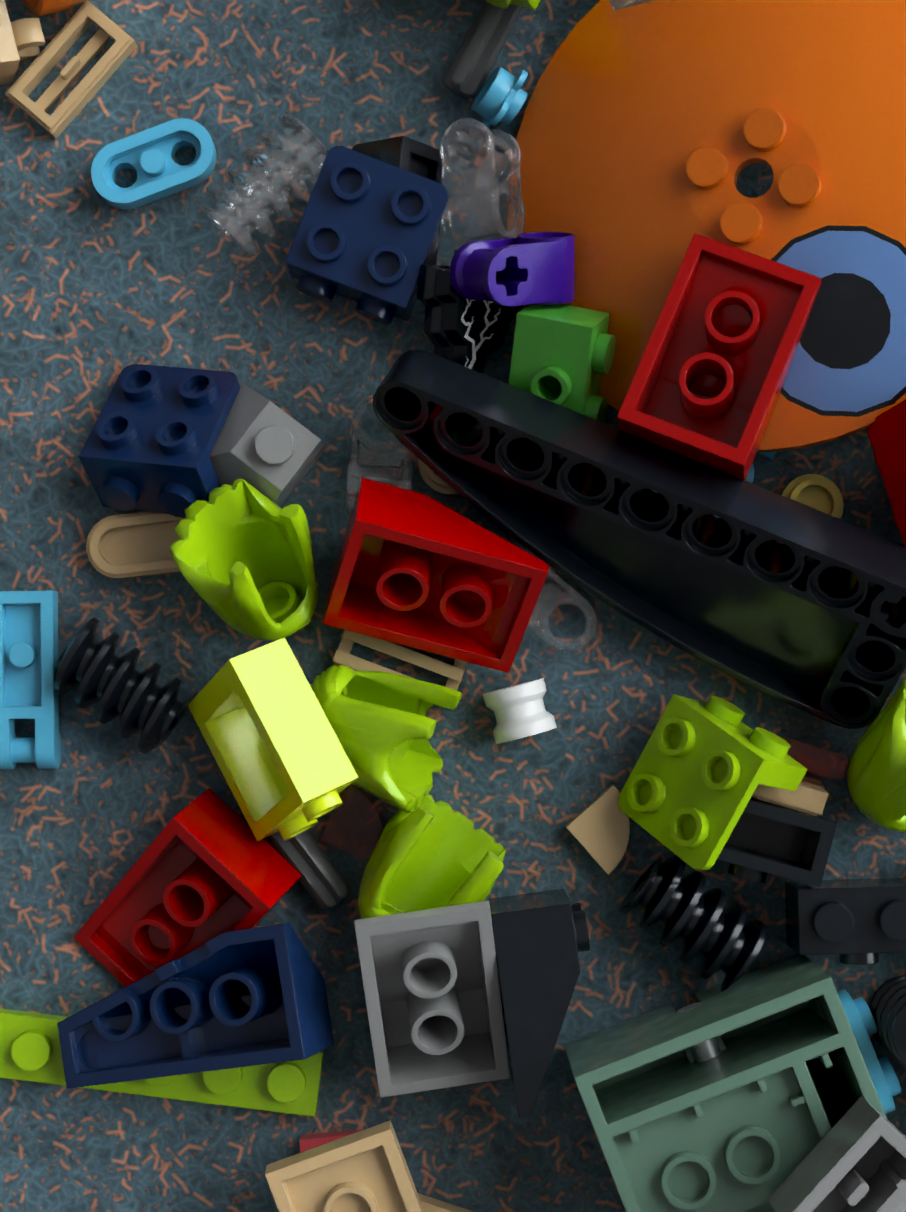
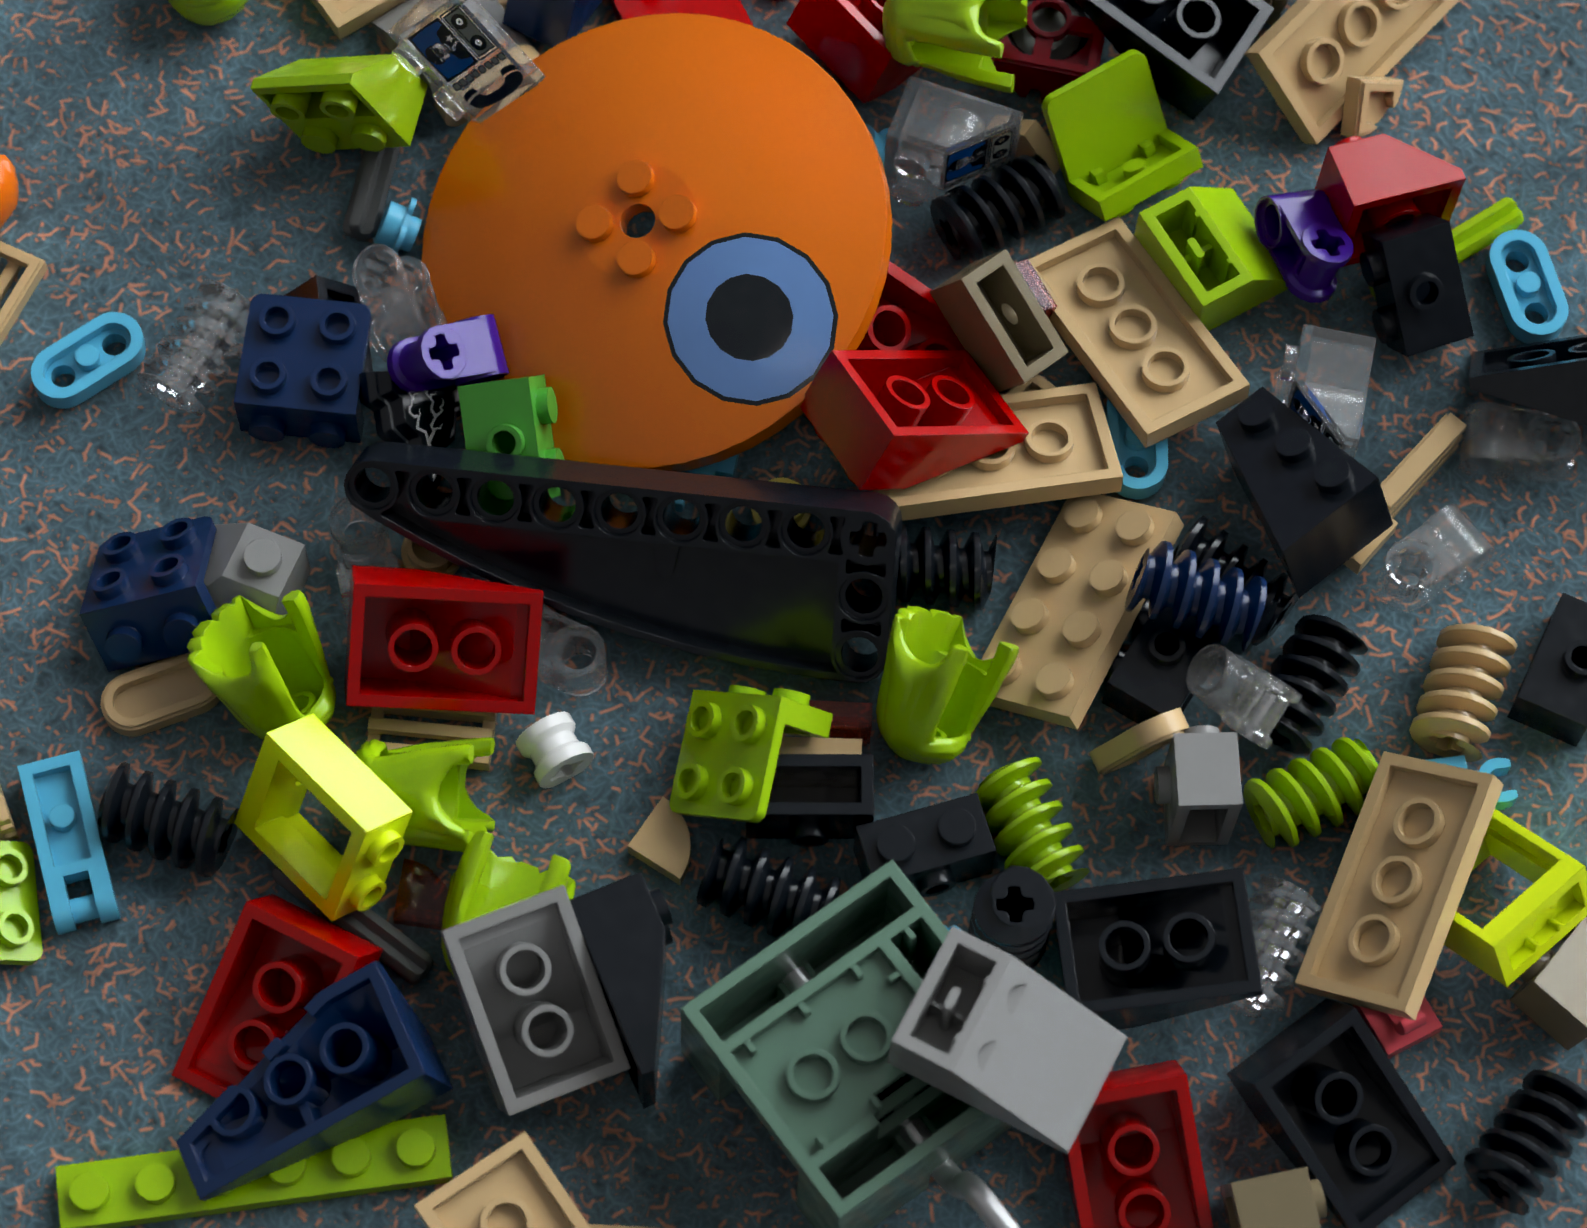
camera: 20 degrees left, 20 degrees down
(719, 355) = (647, 374): red slope -> none

